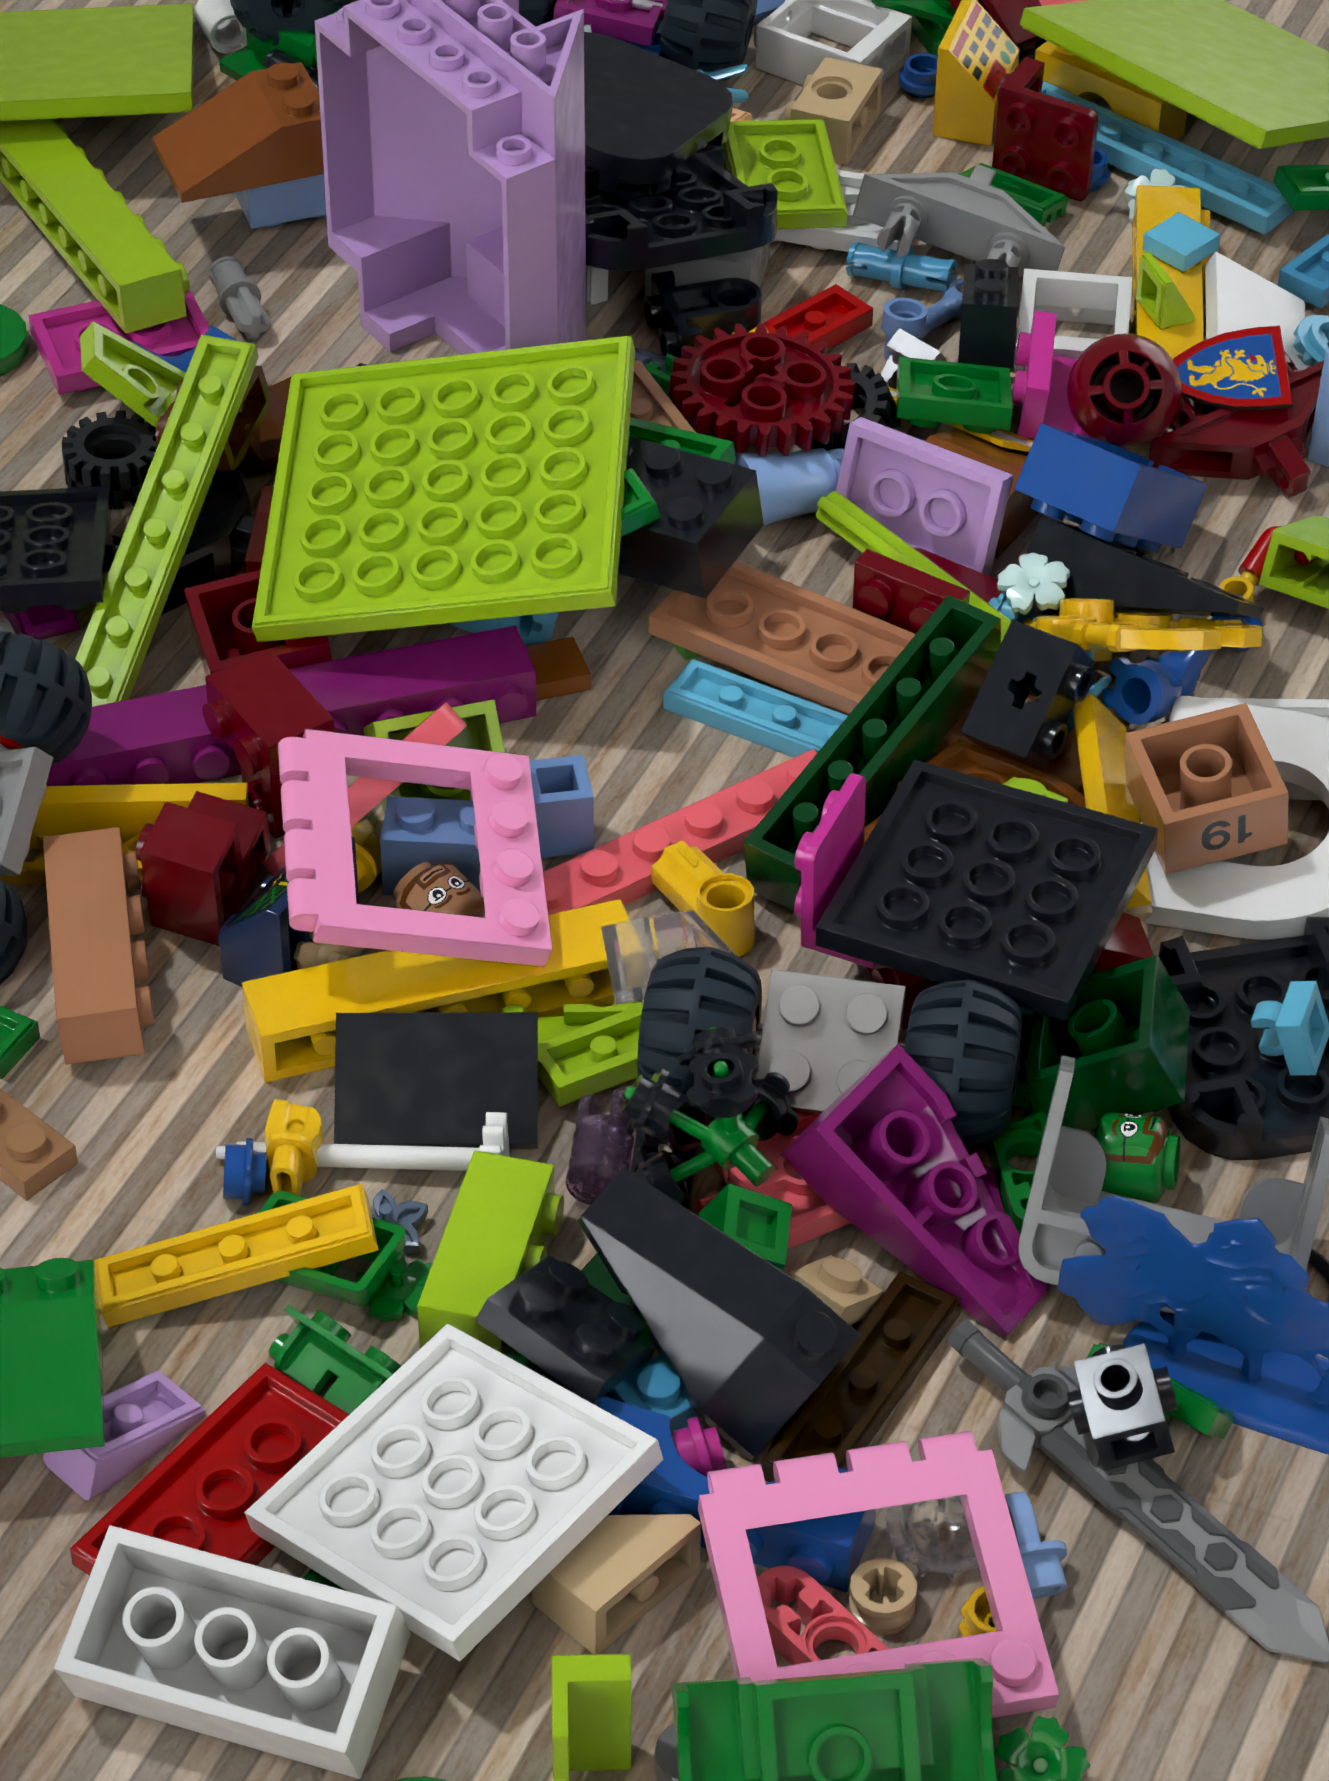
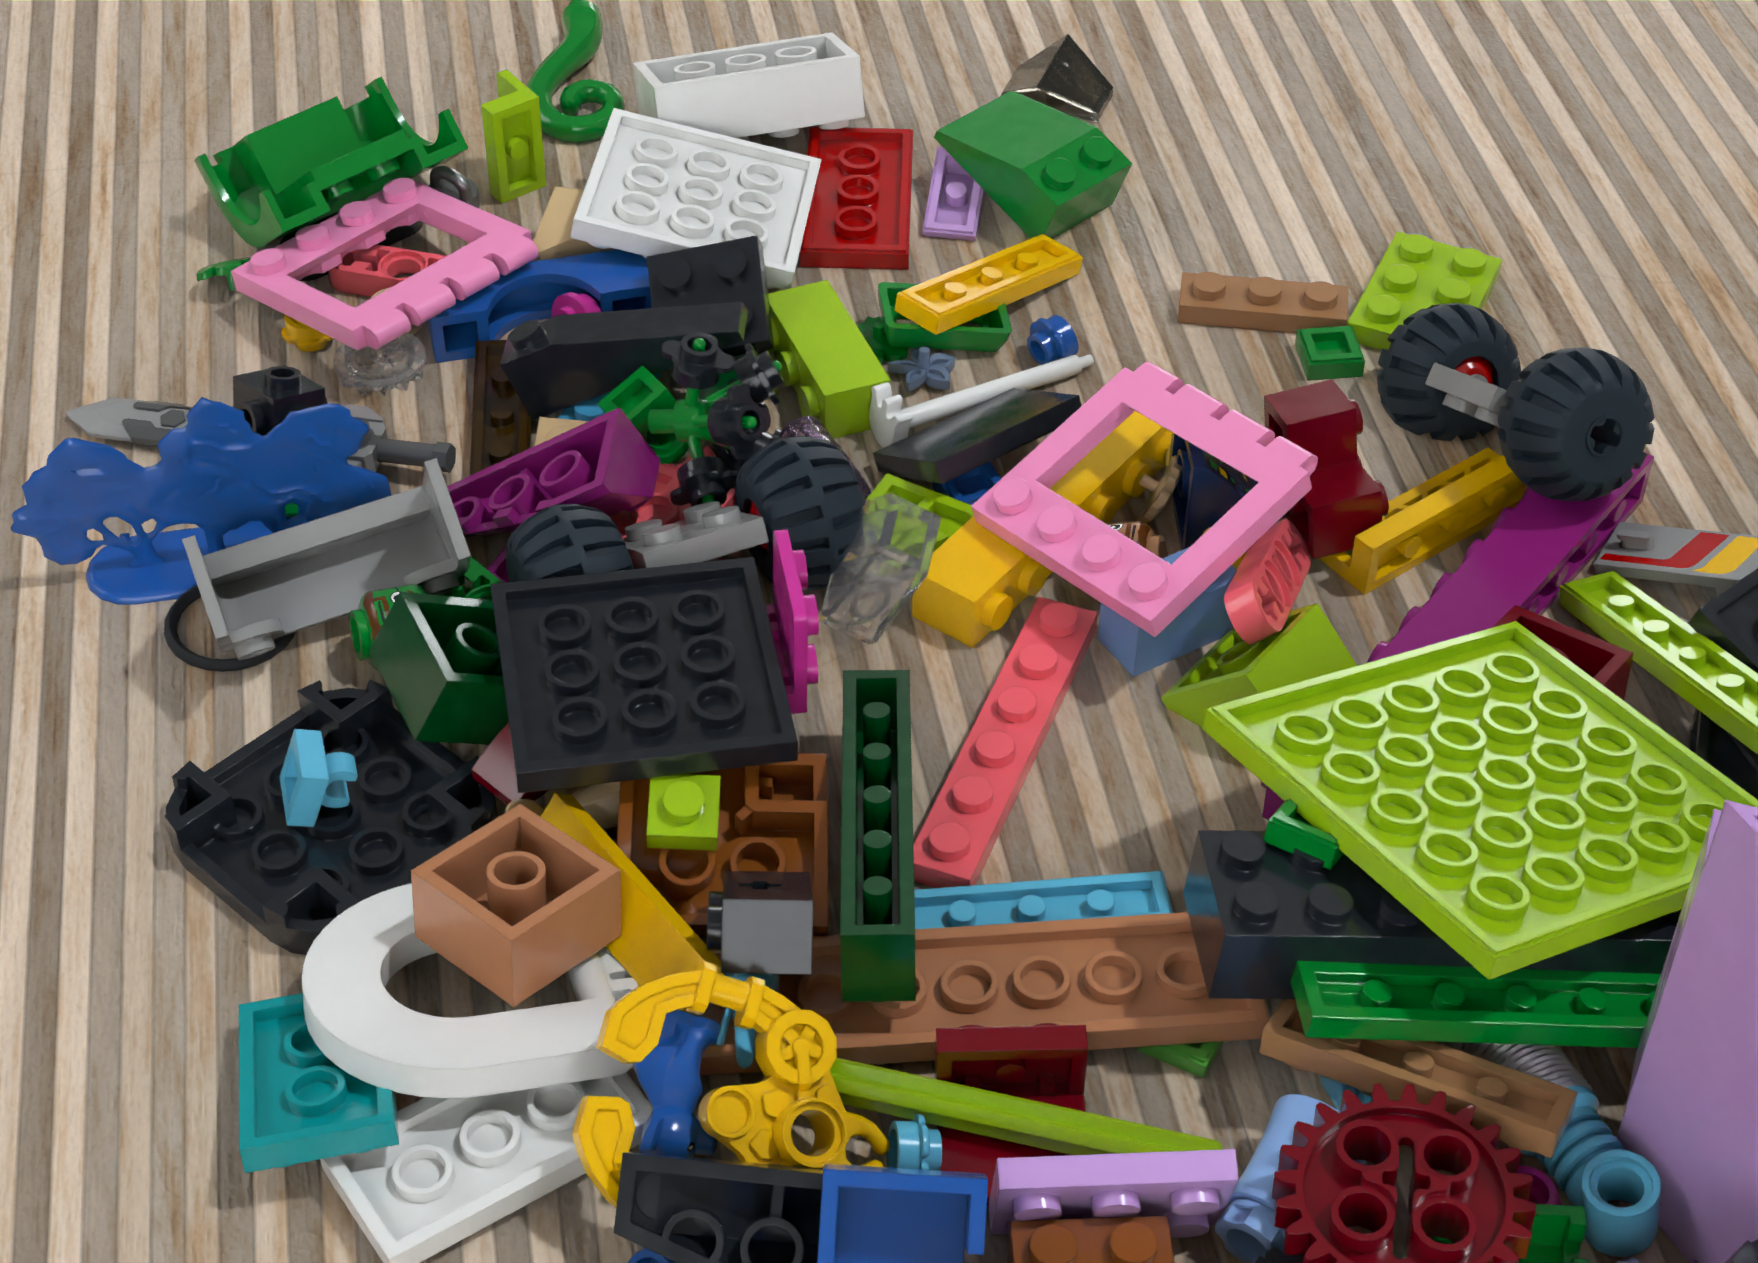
camera: 145 degrees right, 0 degrees up
(94, 945) = (1399, 437): nougat brick -> none
(252, 711) = (1393, 569): dark red brick -> none
(291, 1145) = (1032, 357): yellow piece -> none
(321, 1349) = (855, 268): green hinge -> none
(563, 805) = (1116, 670): medium blue brick -> none
(717, 897) = (935, 683): yellow piece -> none
(1034, 582) = (895, 1140): light aqua plant -> none
(1039, 1558) = (320, 364): light blue piece -> none

